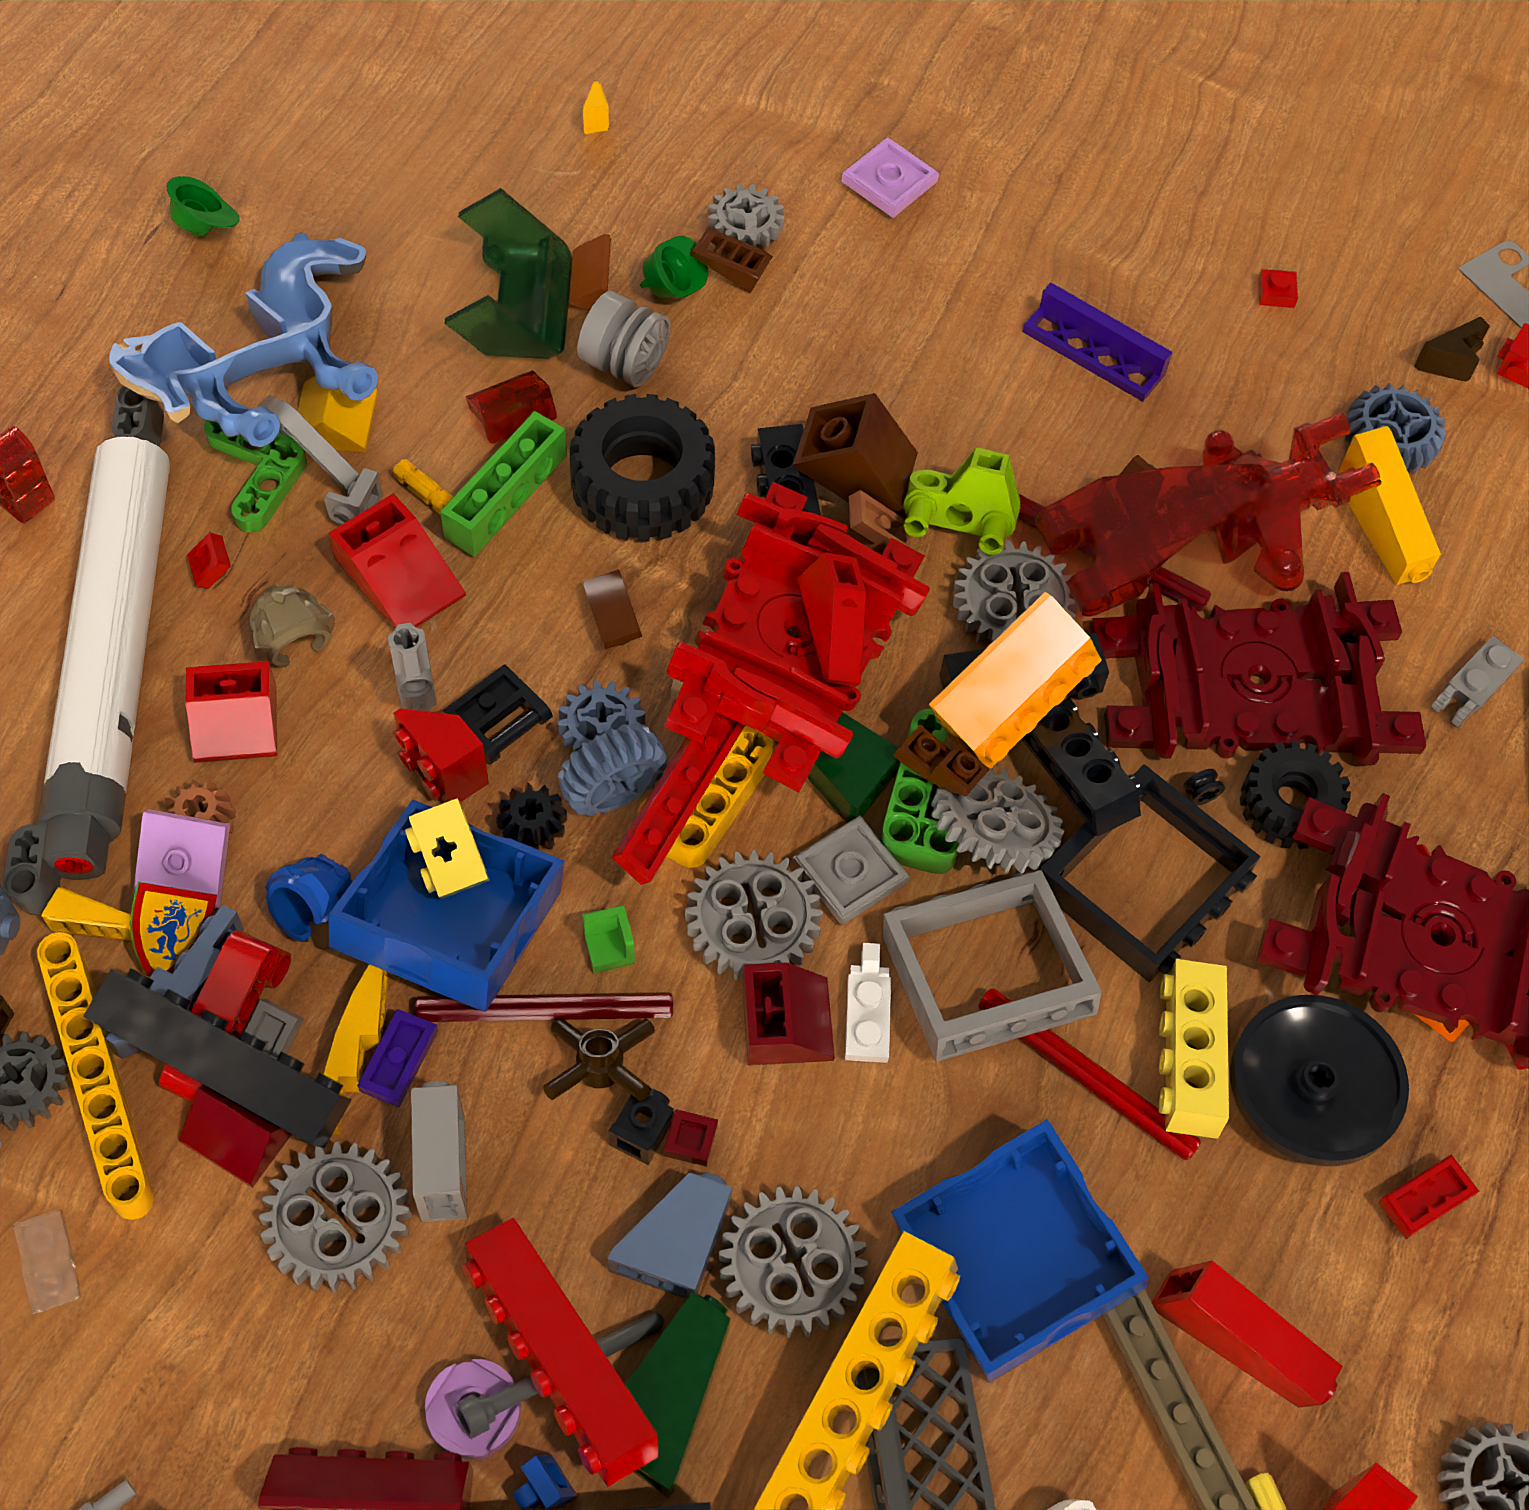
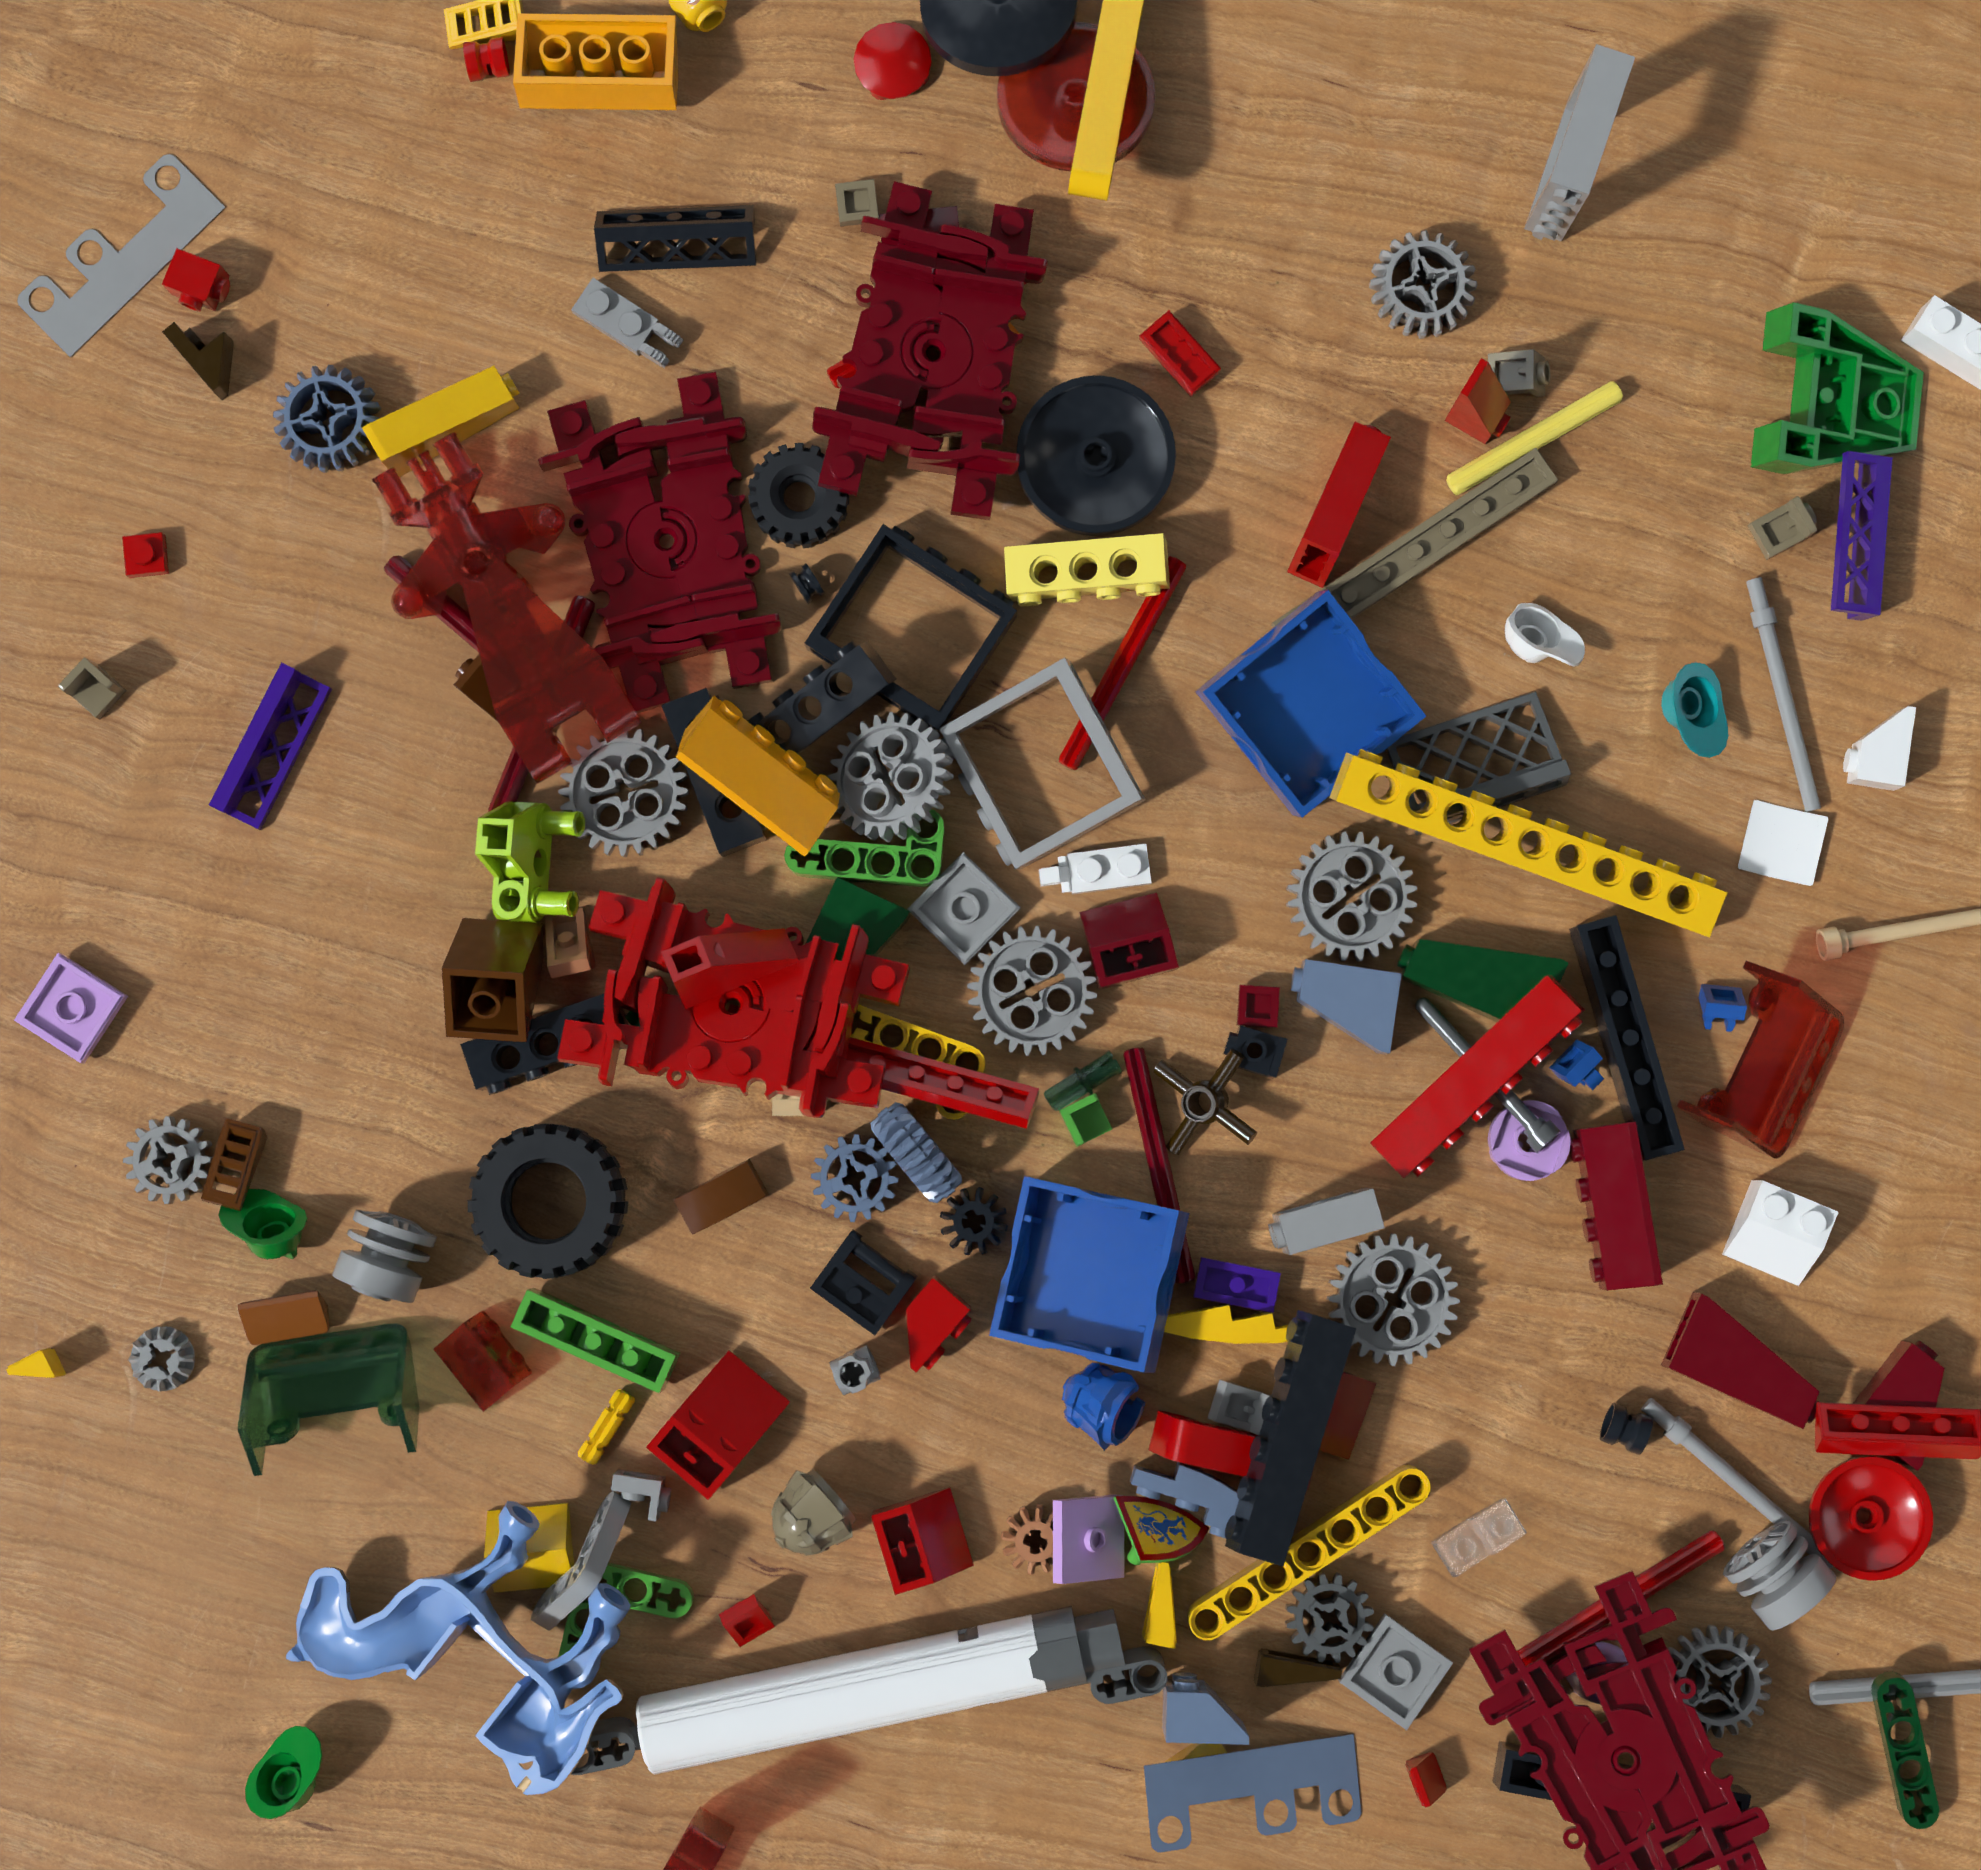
camera: 90 degrees left, 25 degrees up
(110, 1452) = (1628, 1429): none -> black wheel
(447, 823) = (1021, 1292): light yellow brick -> none
(571, 201) = (179, 1364): none -> light grey gear
(650, 948) = (1082, 1081): none -> clear green axle
(950, 769) = (851, 837): reddish brown slope -> none
(1167, 232) = (92, 687): none -> dark tan panel

